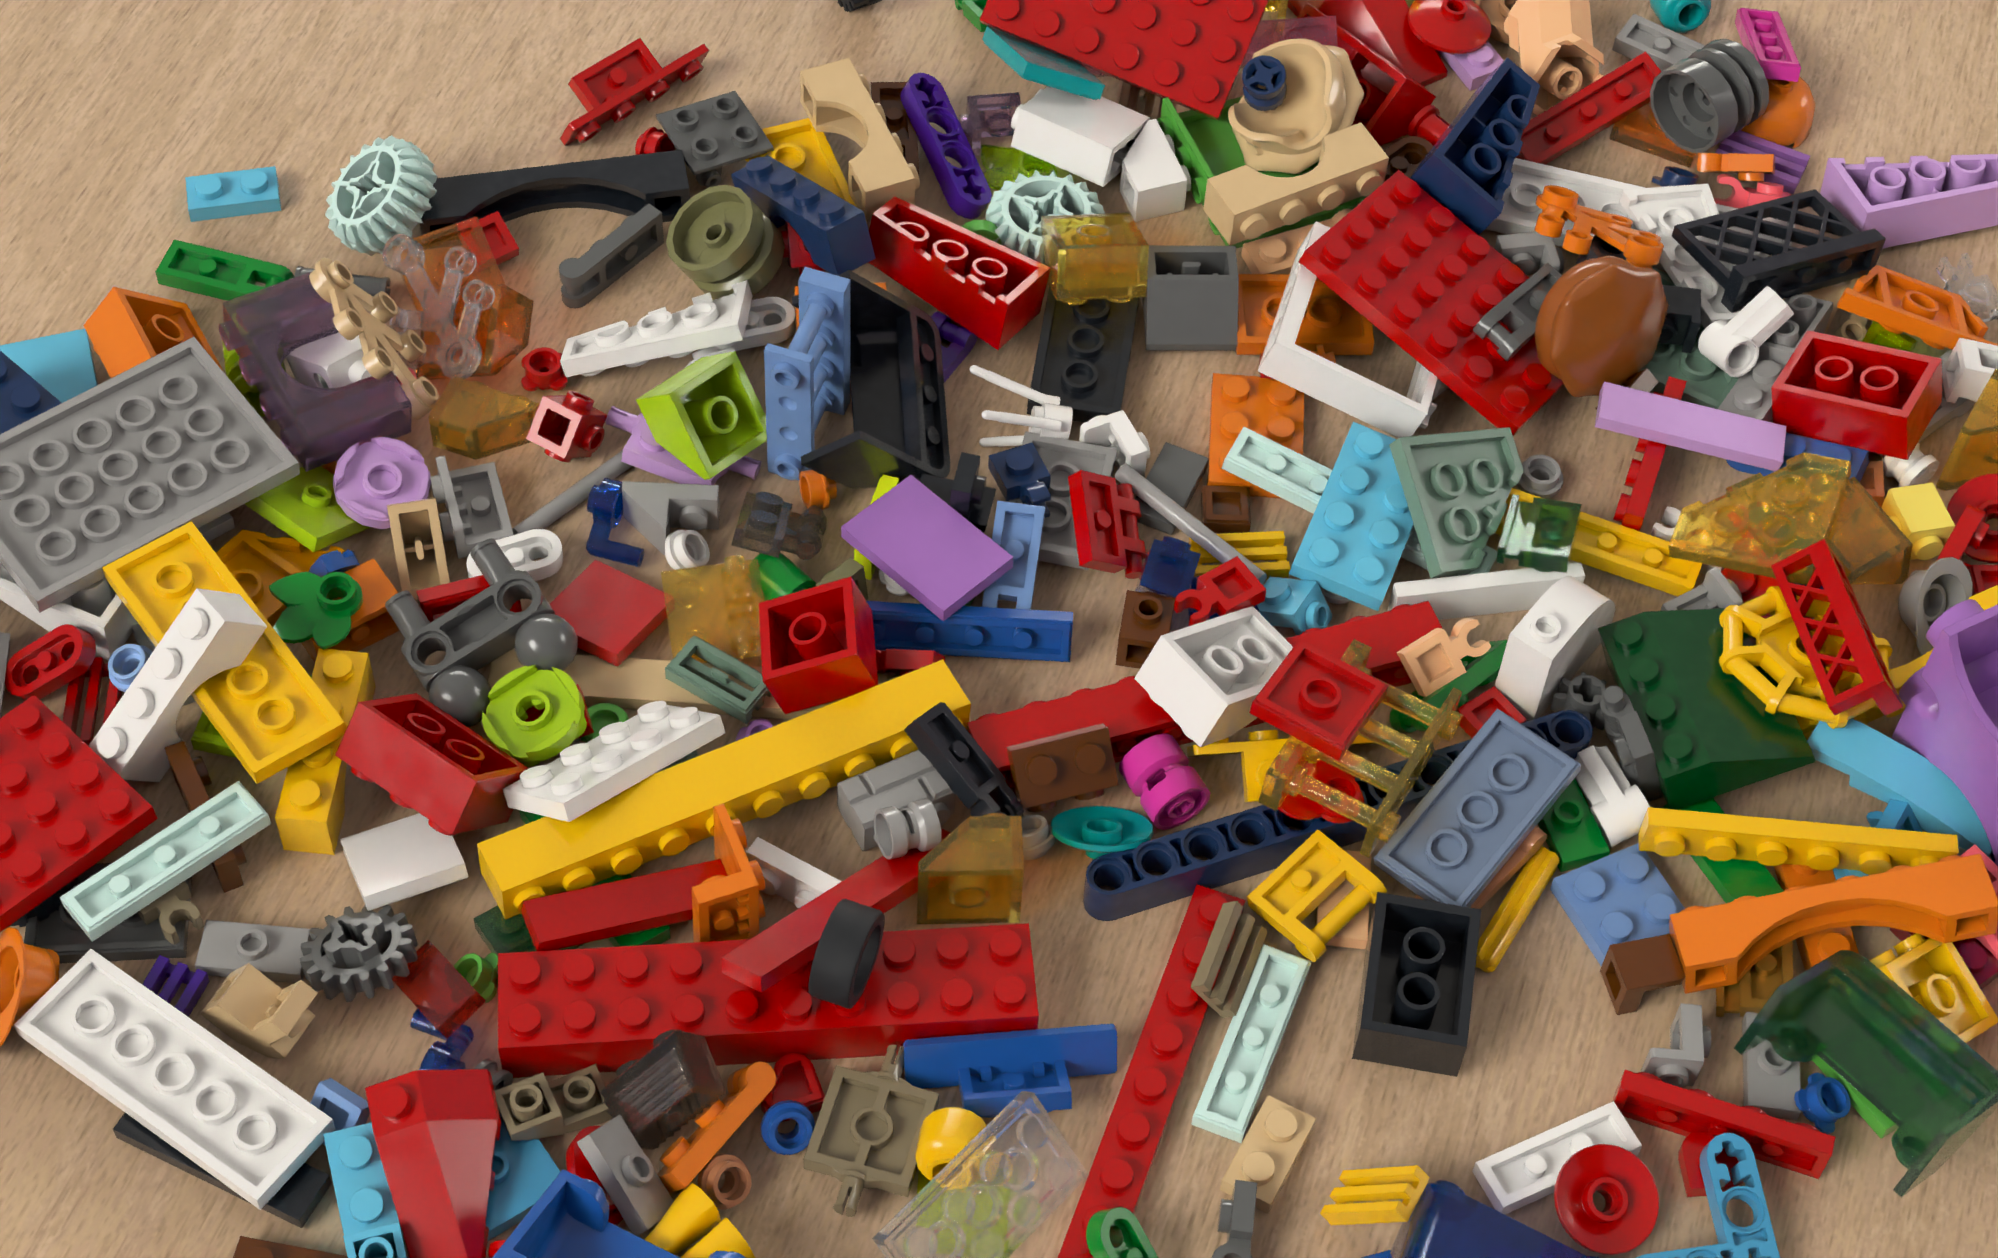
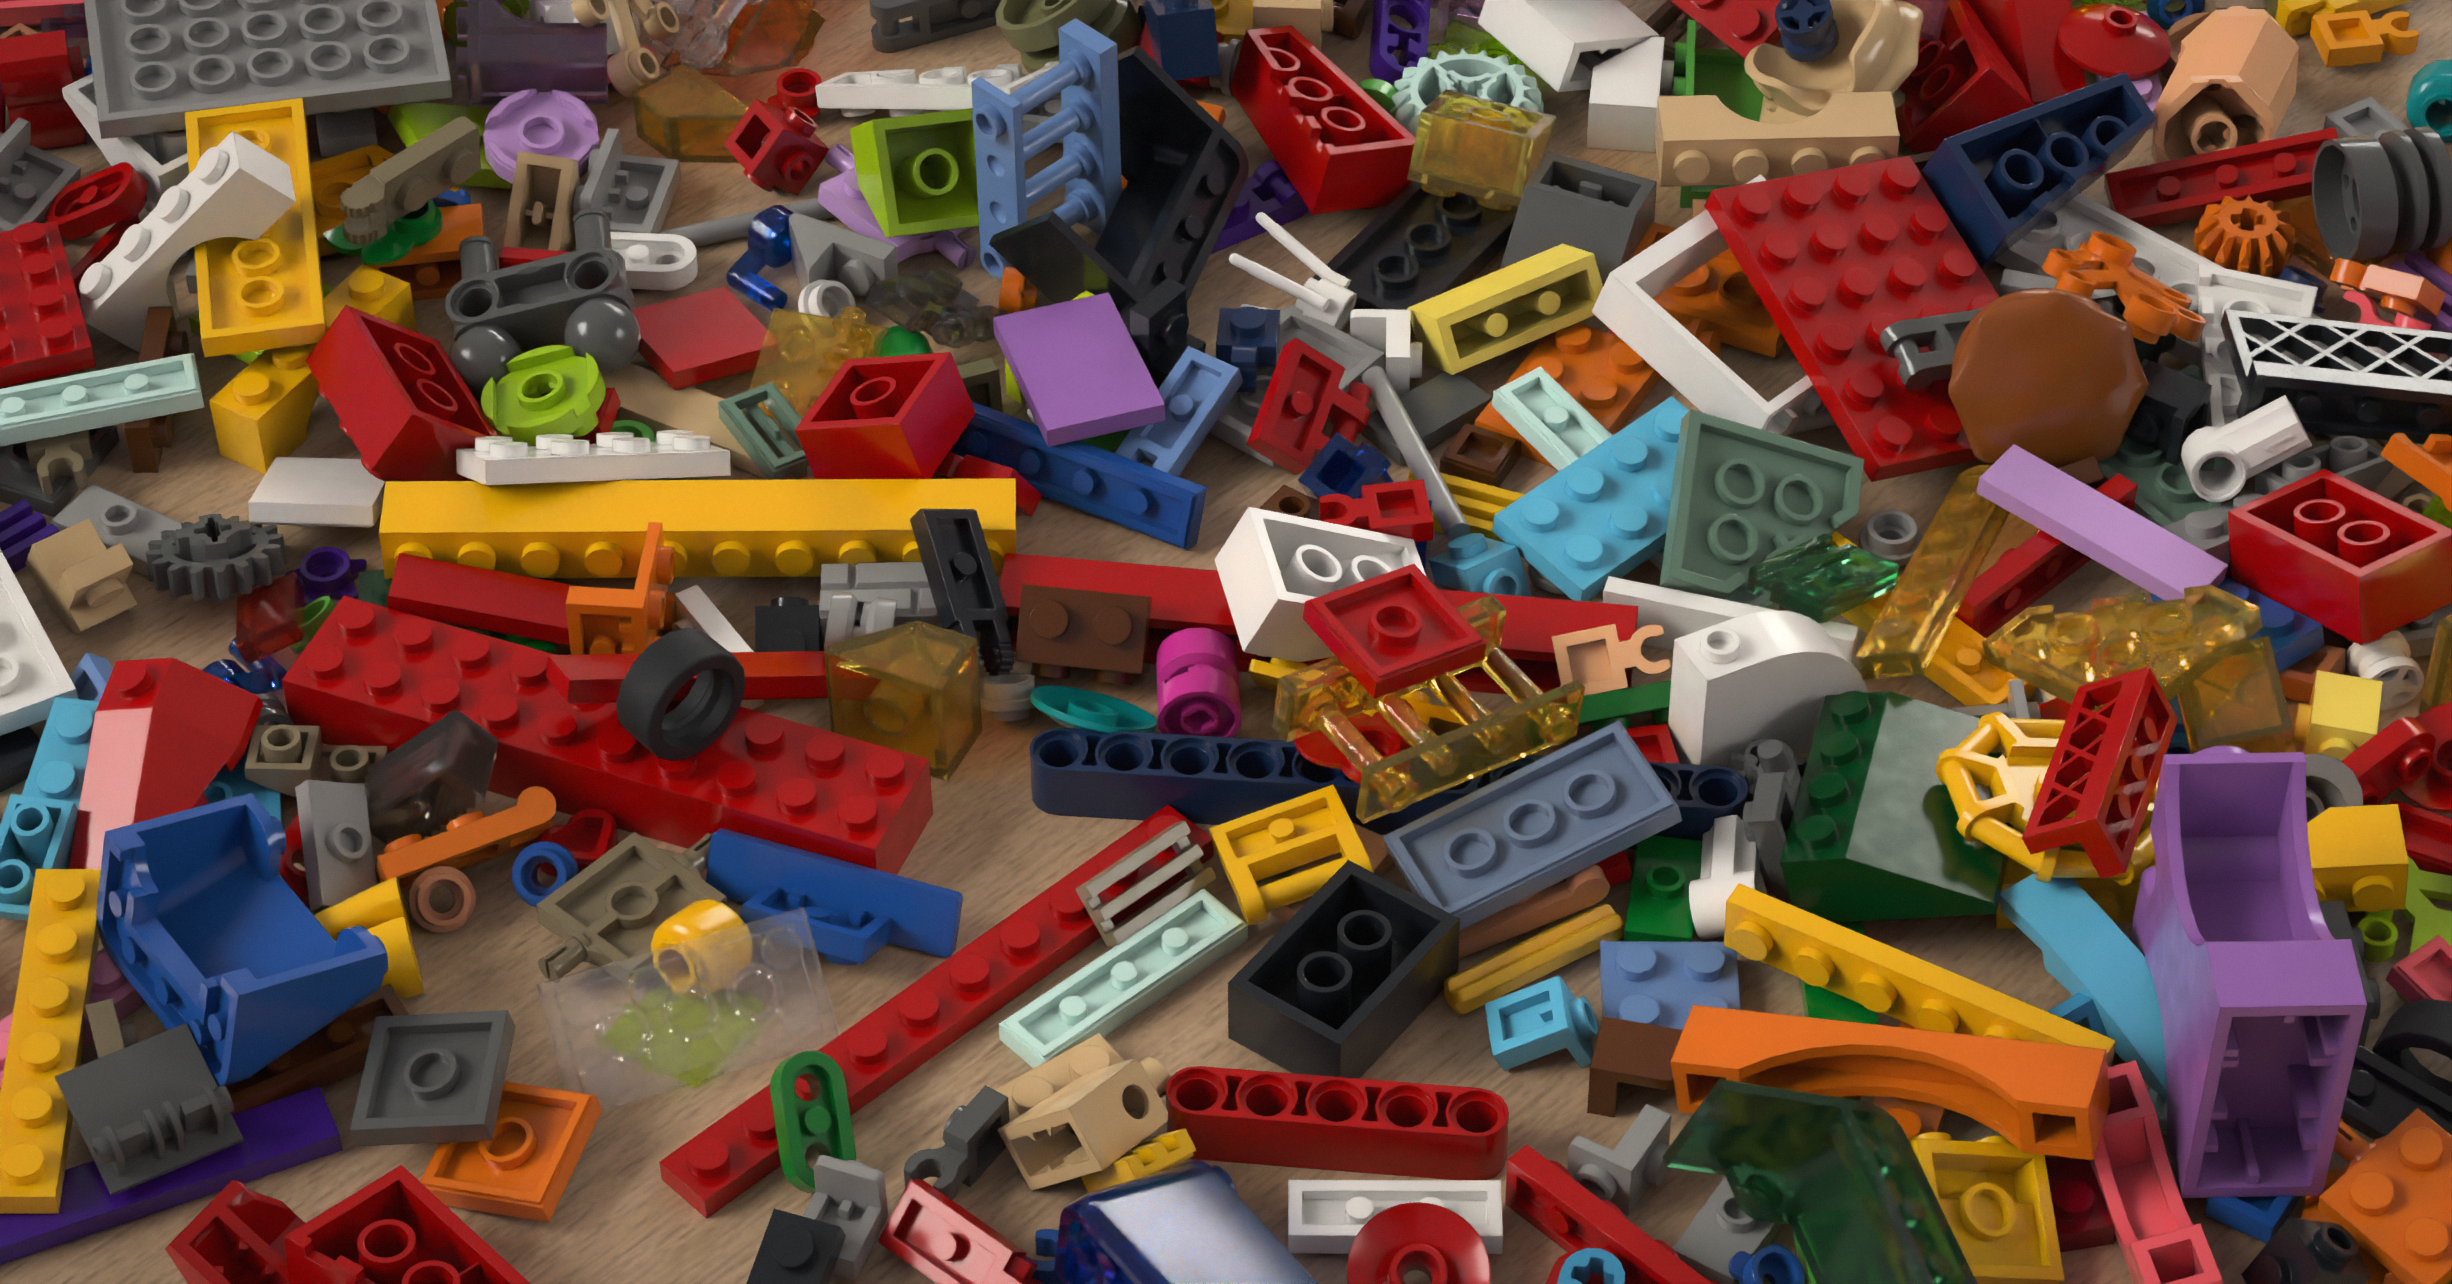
camera: 30 degrees right, 10 degrees down
(333, 569) = (410, 180): none -> dark tan hinge
(445, 916) = (332, 563): none -> dark purple plate
(839, 847) = (787, 626): none -> black bracket
(1186, 382) = (1507, 308): none -> light yellow brick
(1323, 1179) = (1108, 1113): none -> tan torso
(1461, 1119) = (1340, 1123): none -> red beam
(1557, 963) = (1540, 1023): none -> medium azure bracket
(1606, 502) = (1933, 582): none -> clear yellow plate
(1623, 154) = (2246, 236): none -> orange gear

